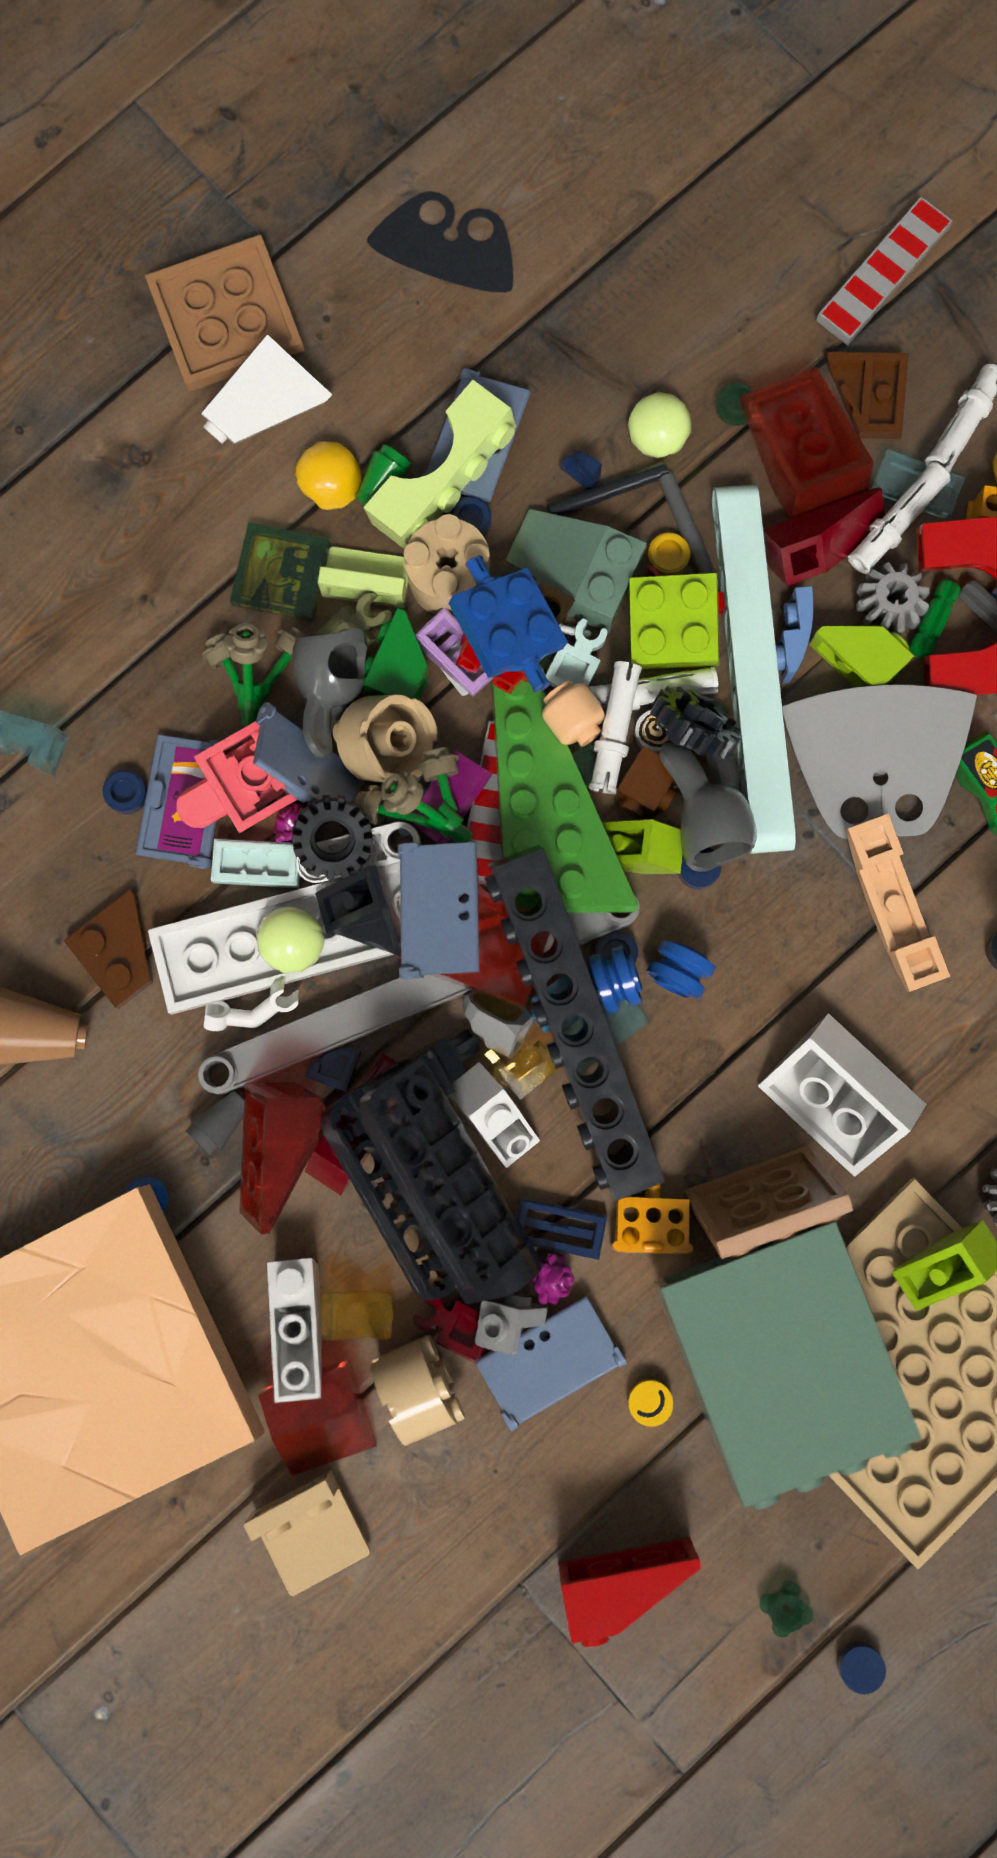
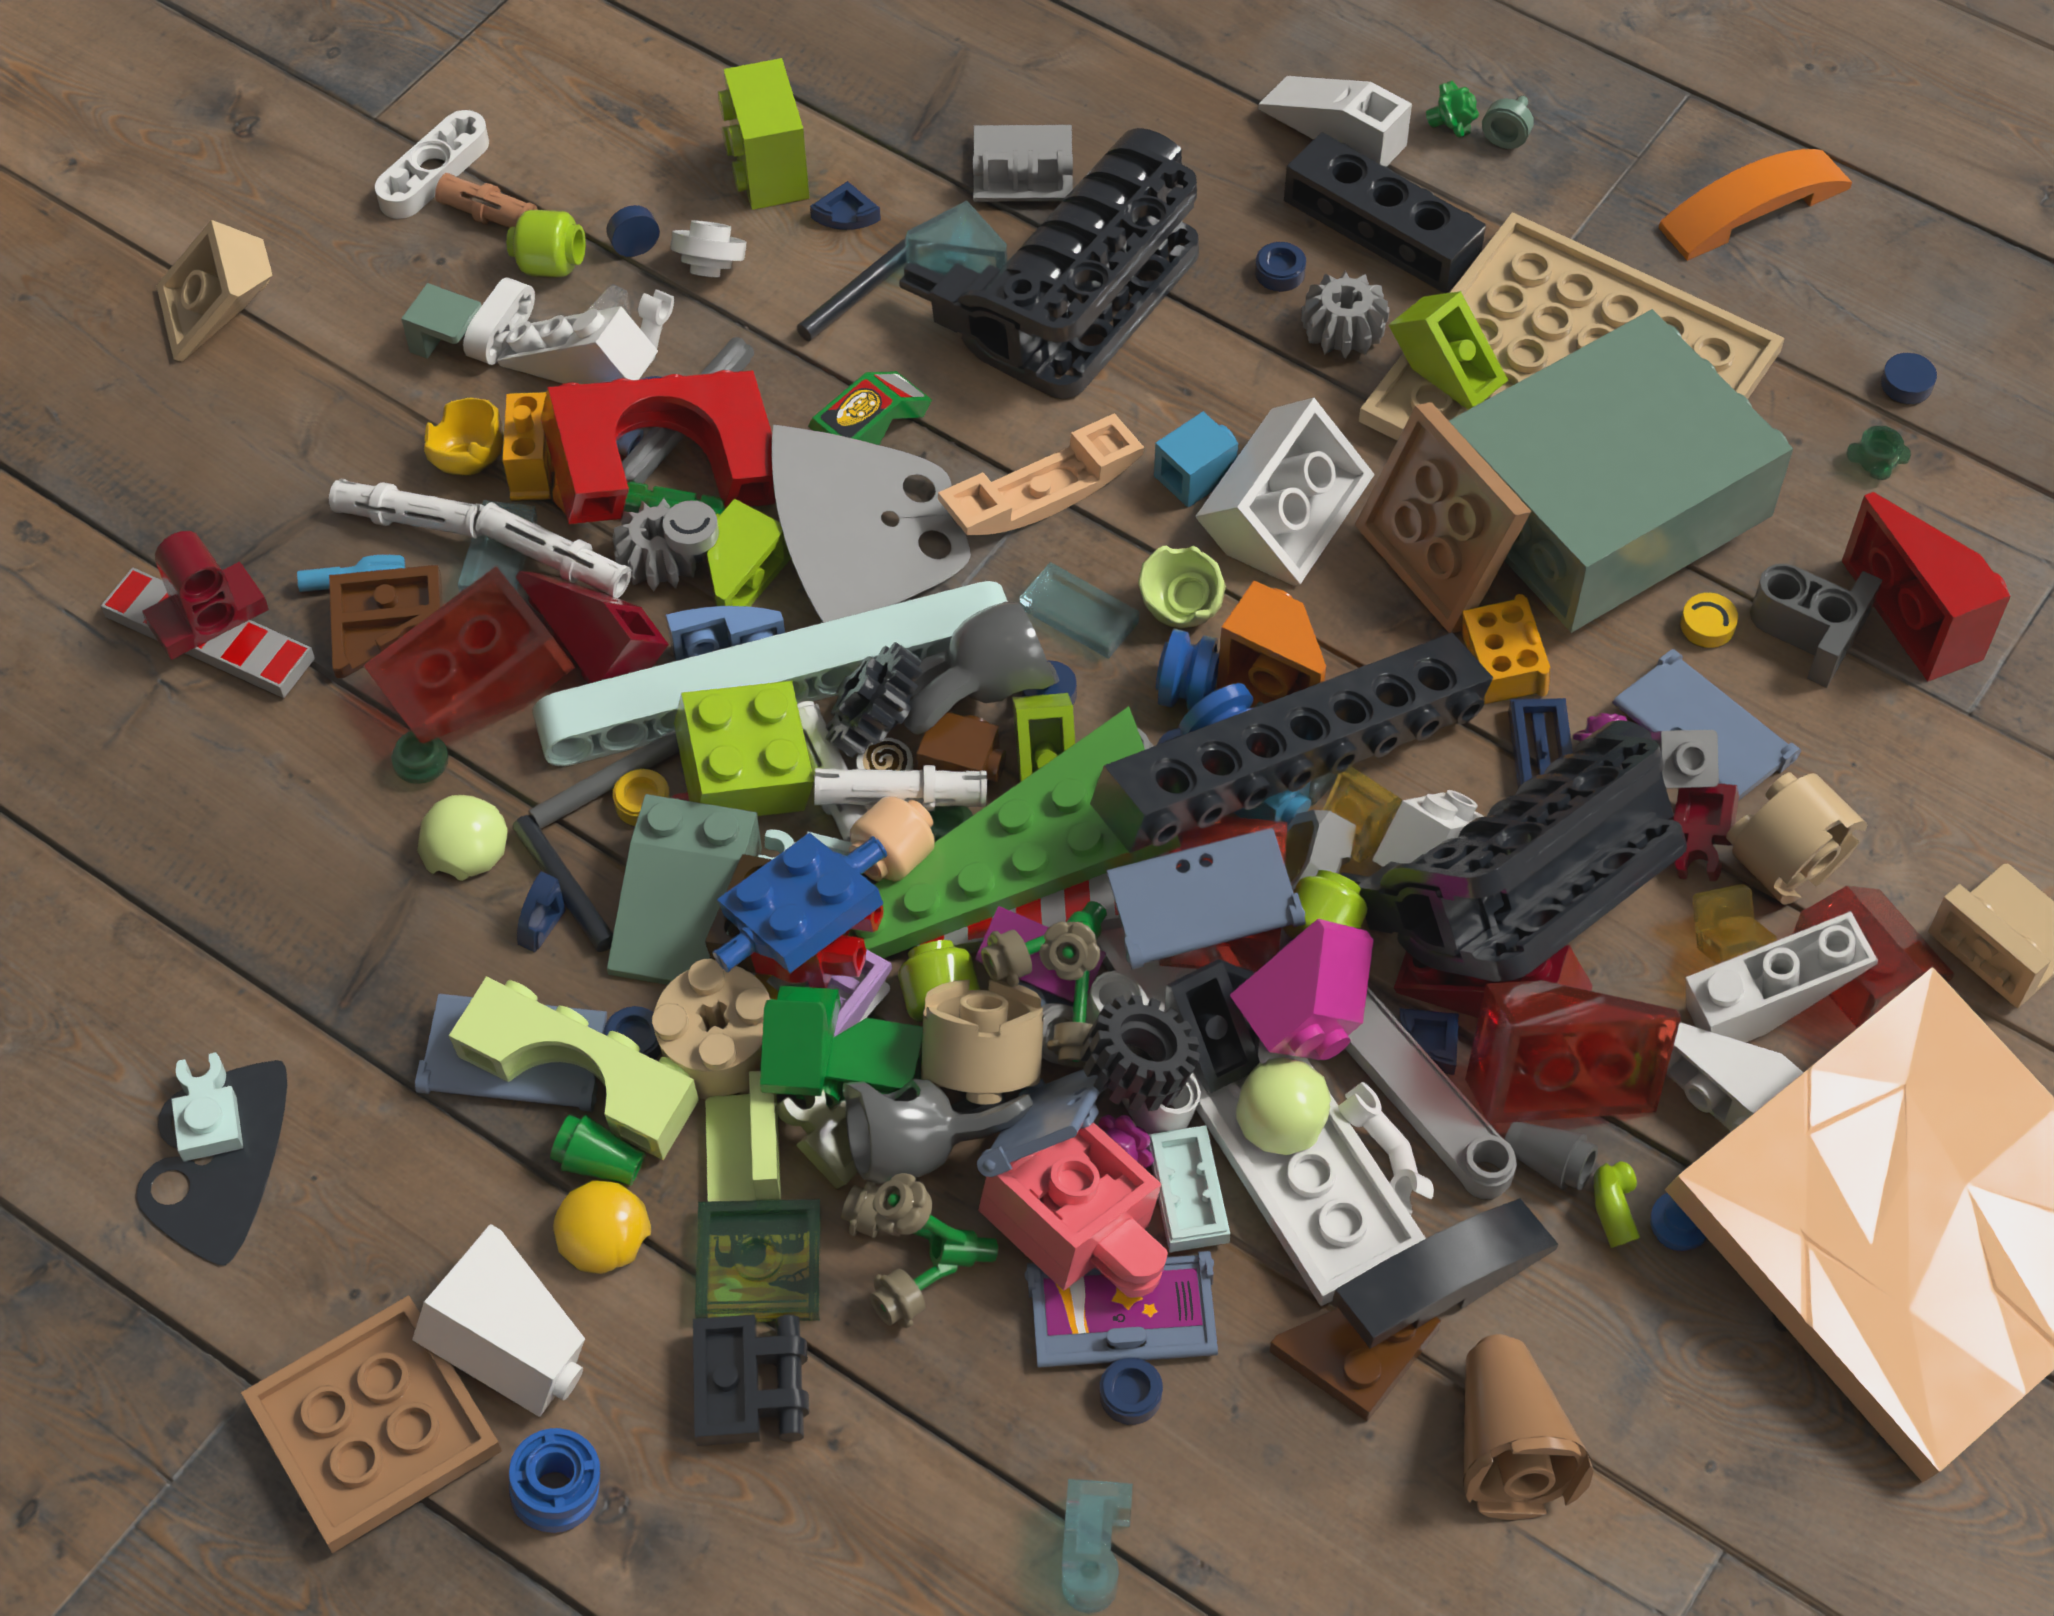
camera: 105 degrees left, 25 degrees down
(141, 1017) = (1444, 1271): none -> black slope
(143, 399) = (550, 1452): none -> blue wheel
(171, 1151) = (1612, 1208): none -> lime arm
(197, 535) = (728, 1384): none -> black plate
(235, 1275) = (1727, 1074): none -> white slope
(352, 970) = (1310, 992): none -> dark pink slope
(412, 612) = (798, 1039): none -> green slope
(429, 1007) = (1329, 898): none -> lime head
(458, 726) = (930, 967): none -> lime head
(473, 235) = (209, 1114): none -> light aqua plate
(627, 1476) = (1813, 614): none -> dark grey tile
(675, 1034) = (1269, 646): none -> orange slope
(762, 985) = (1181, 586): none -> yellowish green hair
(769, 907) = (1079, 610): none -> clear light blue tile
(886, 614) = (690, 528): none -> light grey tile
(892, 1033) = (1194, 458): none -> dark azure brick
(900, 256) = (201, 595): none -> dark red tile
(917, 389) = (319, 578): none -> dark azure piece

